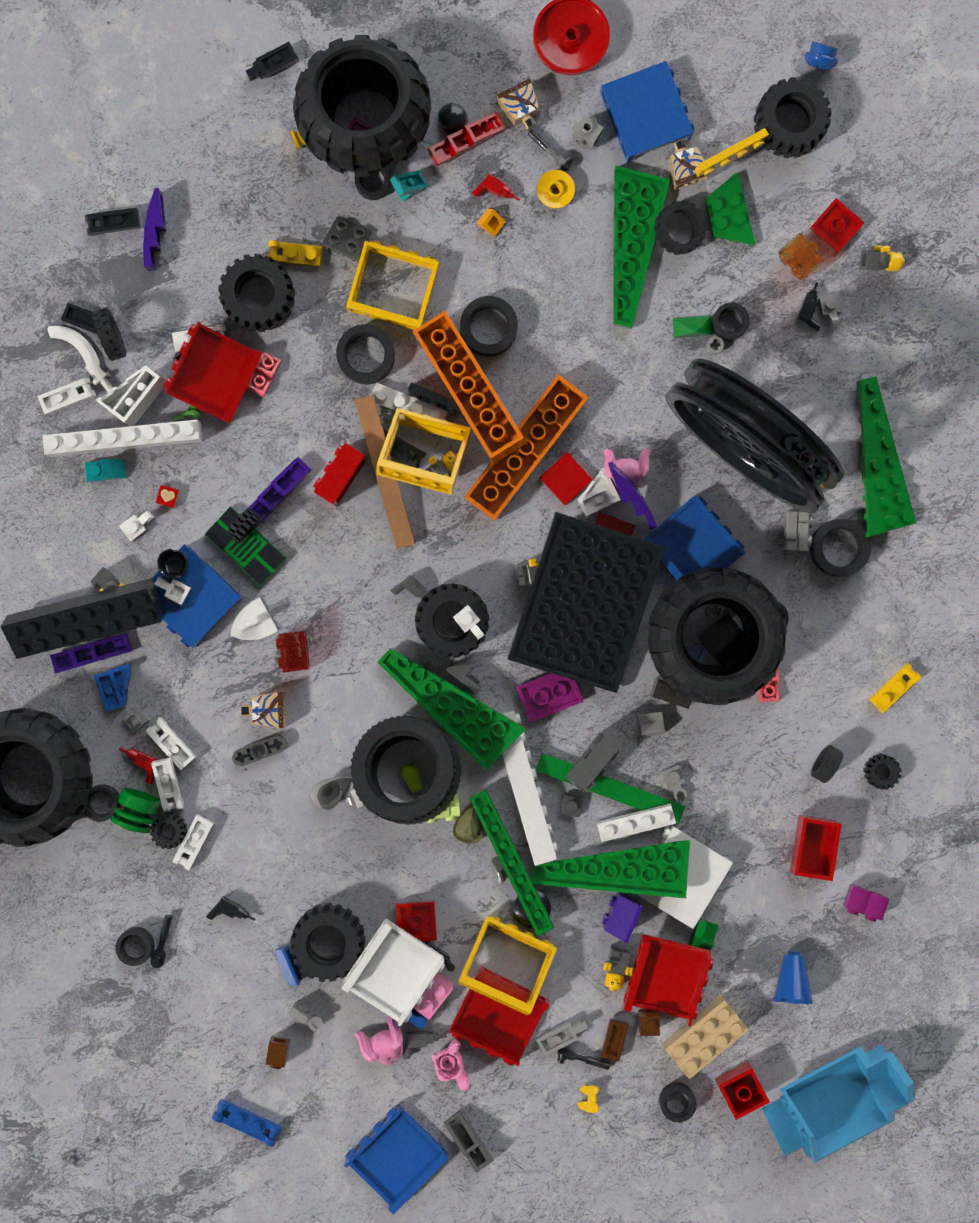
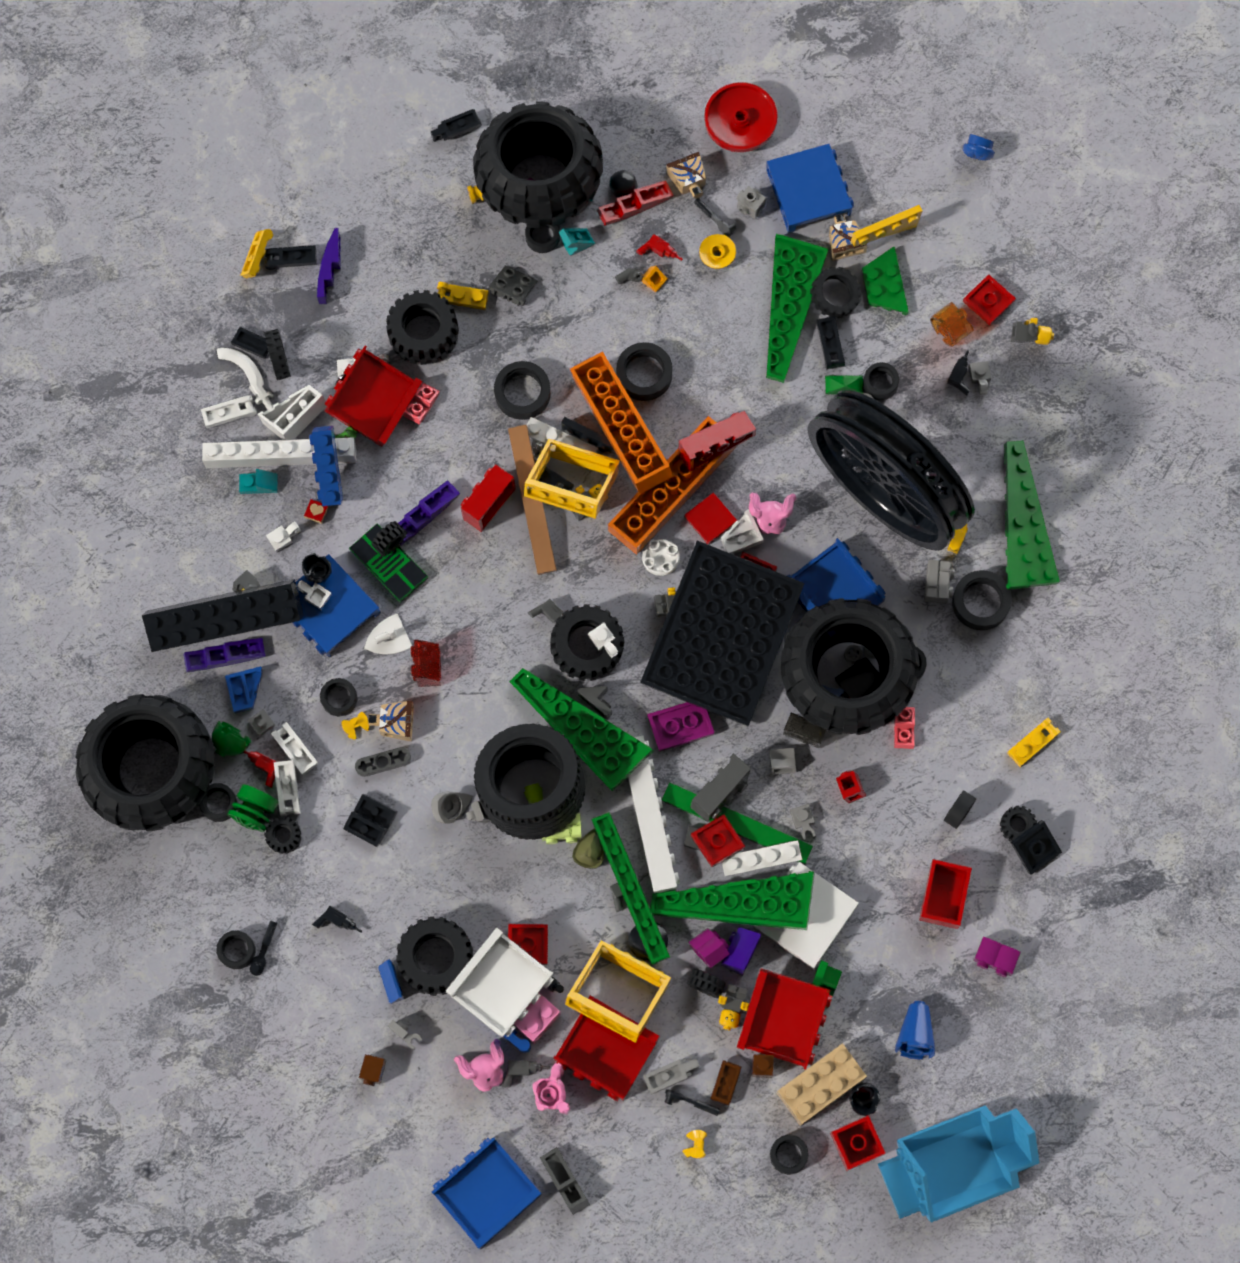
camera: 10 degrees right, 15 degrees down
(76, 219) = (256, 253): none -> yellow plate
(104, 741) = (229, 740): none -> green cylinder
(173, 453) = (327, 465): none -> blue brick
(193, 841) = (306, 848): white plate -> none
(195, 693) = (336, 683): none -> black tyre
(223, 716) = (349, 726): none -> yellow piece
(247, 1122) = (332, 1144): blue plate -> none
(252, 809) = (370, 820): none -> black slope
(391, 252) = (542, 355): yellow window -> none
(466, 219) = (629, 274): none -> dark grey arm
(518, 523) = (661, 557): none -> white dish
(569, 402) = (715, 440): none -> wedge
(591, 916) = (709, 947): none -> magenta brick
(591, 950) = (706, 983): none -> black tyre
(593, 810) = (717, 840): none -> red tile
(629, 492) = (772, 529): dark purple slope -> none
(676, 282) = (830, 342): none -> black plate
(716, 752) = (853, 793): none -> red brick
(746, 1048) = (864, 1098): none -> black hair
(806, 97) = (954, 179): black tyre -> none
(901, 794) = (1036, 847): none -> black tile

